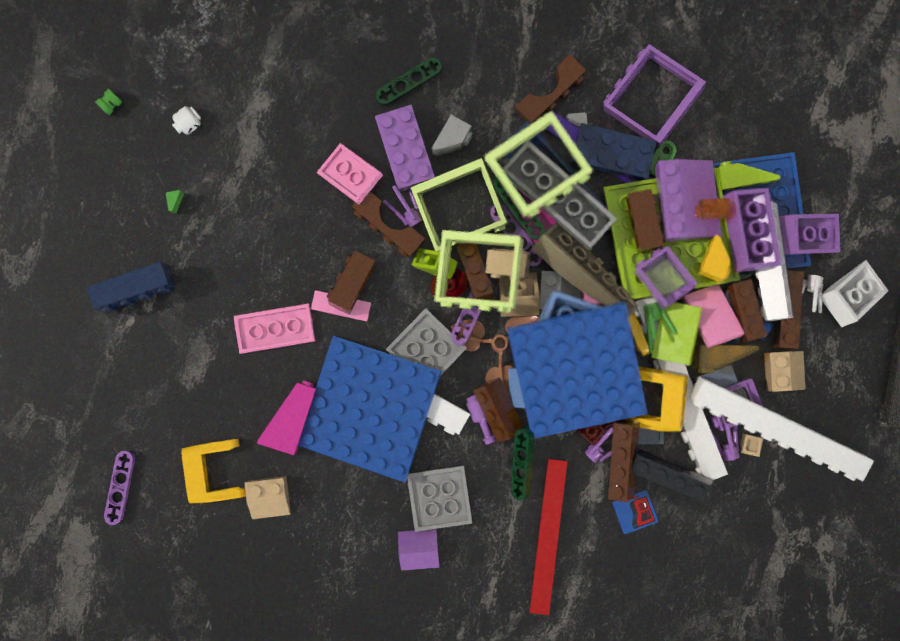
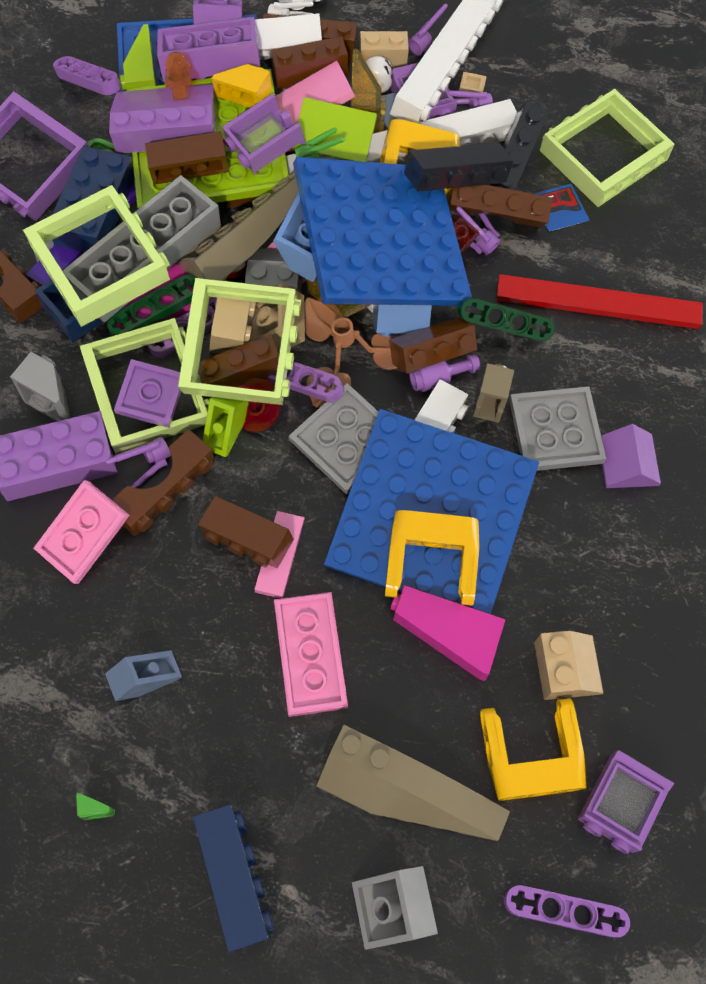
camera: 95 degrees left, 20 degrees down
(119, 384) = (394, 907): none -> light grey slope
(181, 526) = (624, 802): none -> medium lavender window
(189, 387) = (405, 789): none -> dark tan wedge
(256, 223) = (142, 674): none -> sand blue slope
(349, 408) = (438, 532): none -> yellow connector
(446, 210) = (149, 393): none -> medium lavender plate
(461, 452) = (493, 392): none -> dark tan brick
(637, 428) = (458, 166): none -> black brick
(721, 536) = (656, 143): none -> yellowish green window
(732, 133) = (87, 75): none -> medium lavender beam
(752, 366) = (381, 70): none -> white head
(794, 402) = (422, 39): none -> medium lavender plant

